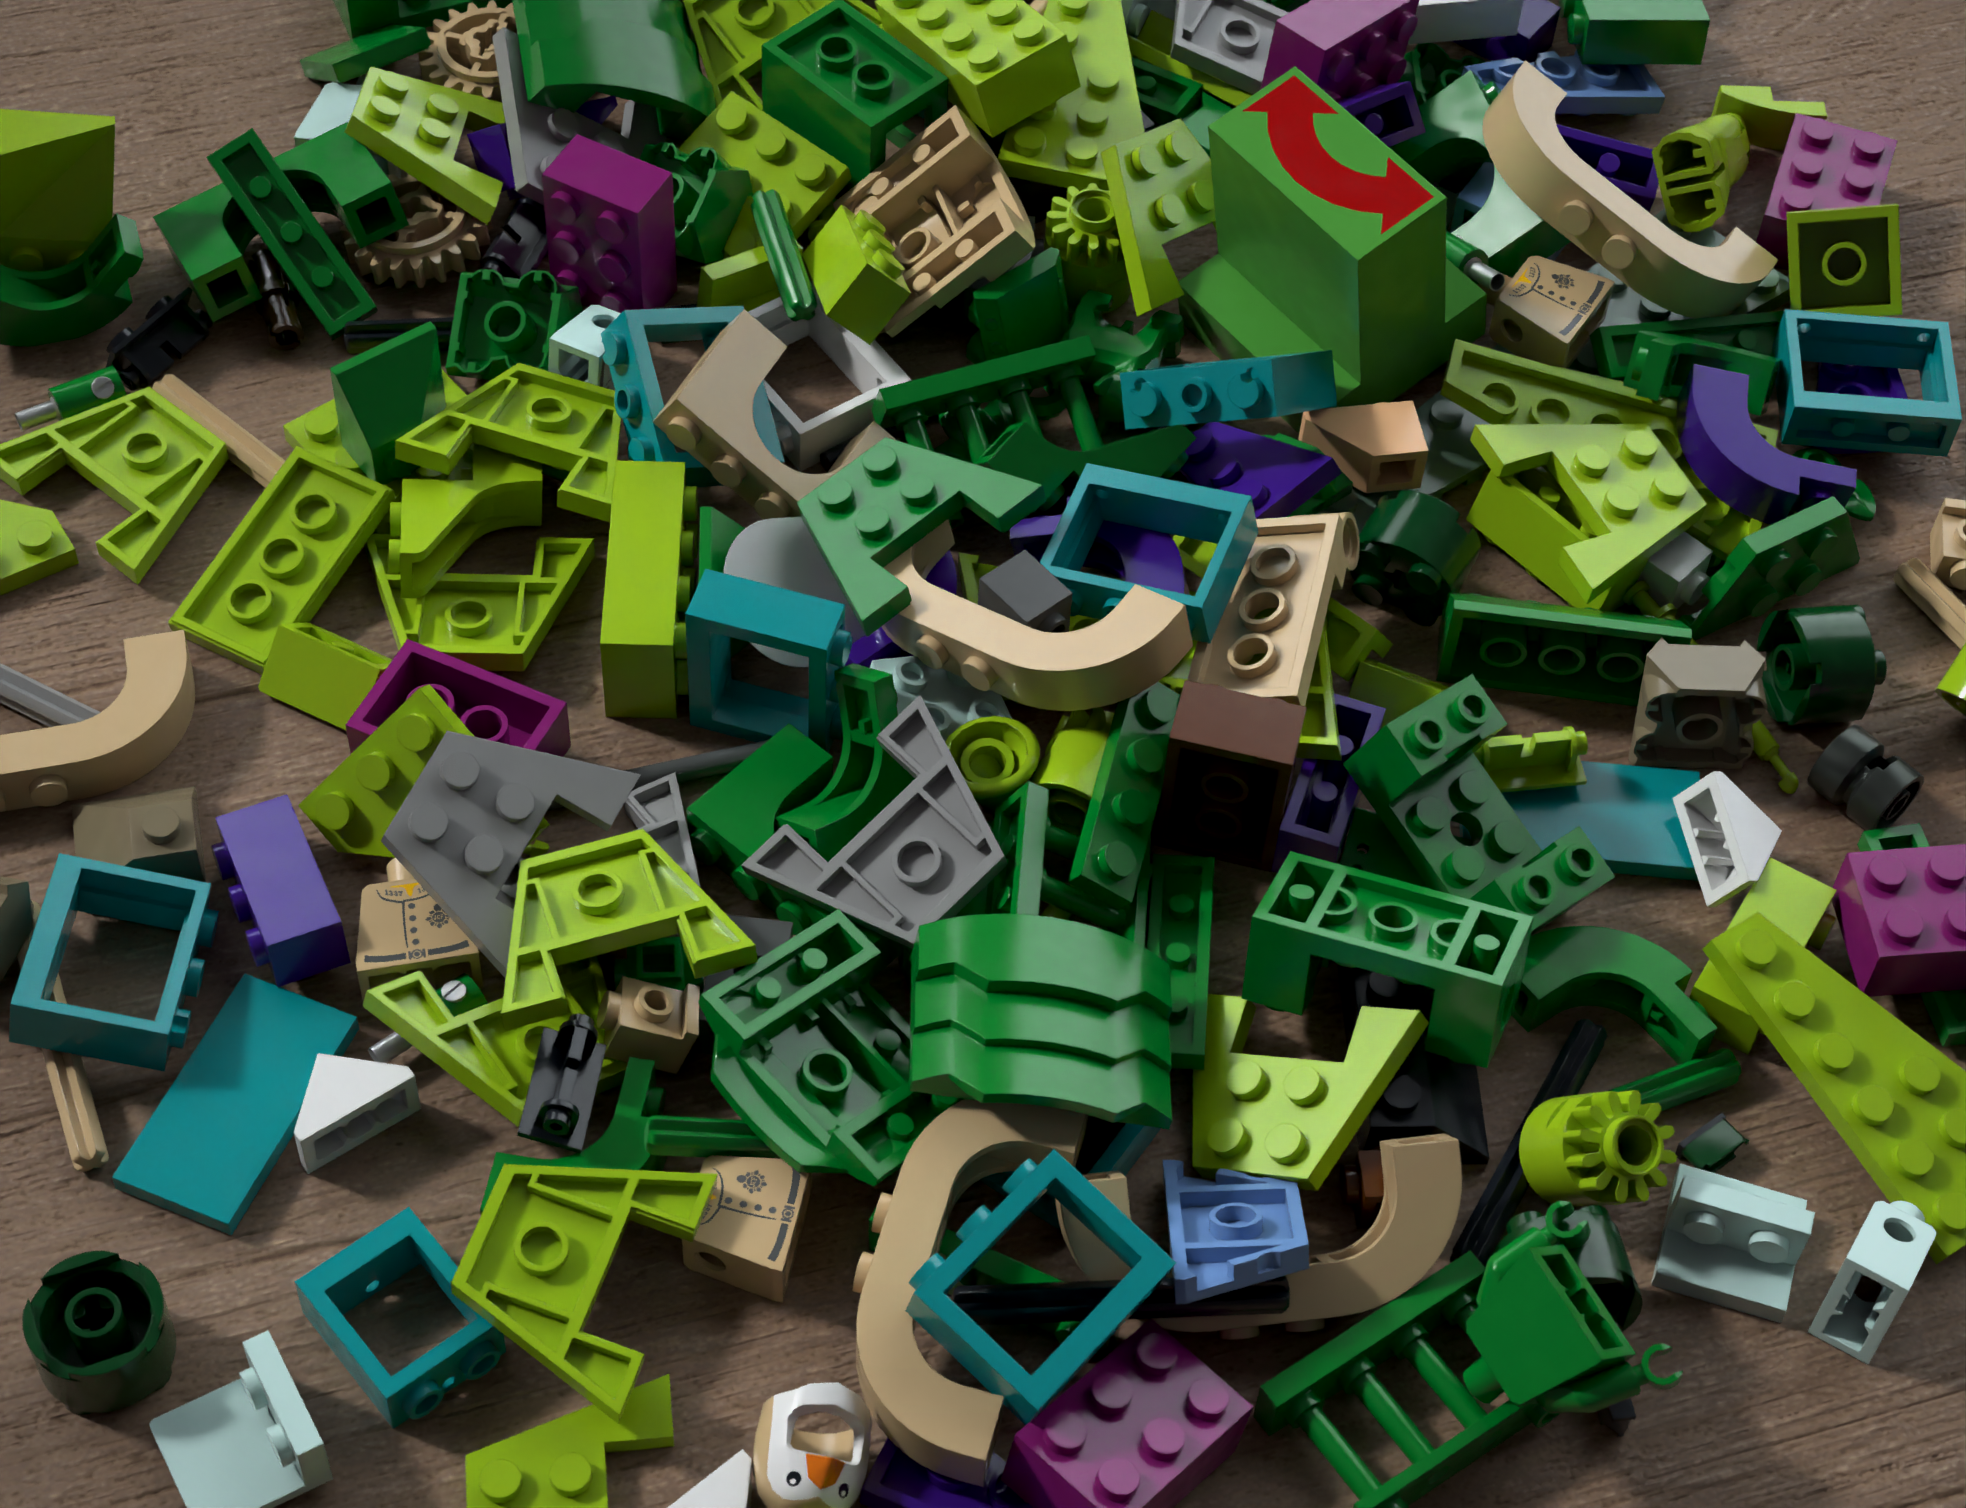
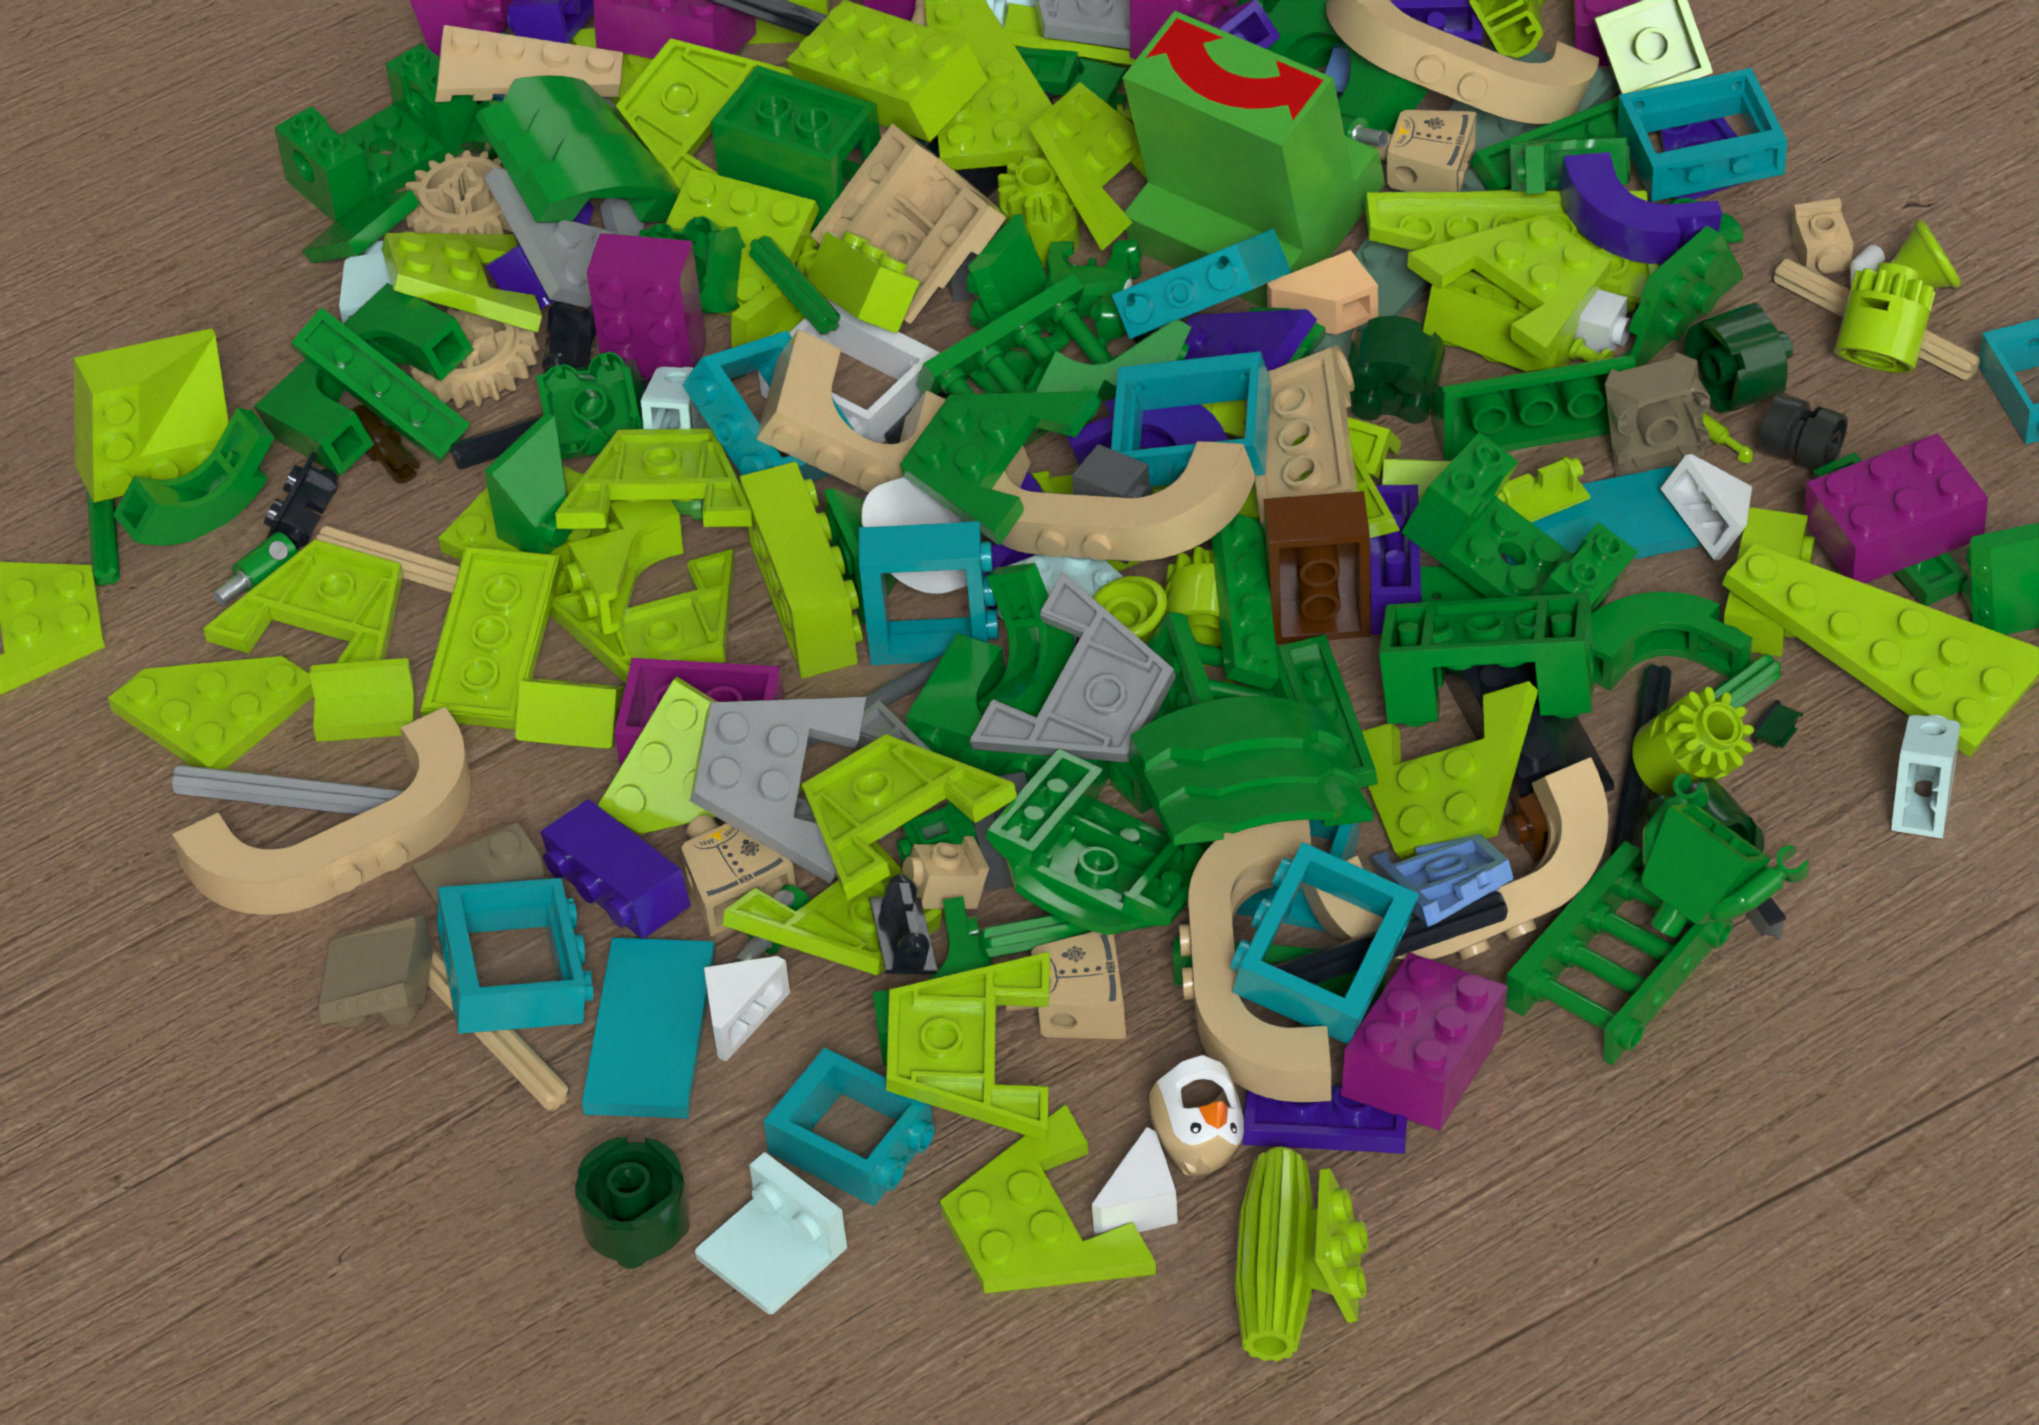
camera: 10 degrees left, 5 degrees down
(110, 590) = (362, 699): none -> lime panel
(1731, 1243) = (1814, 785): light aqua bracket -> none

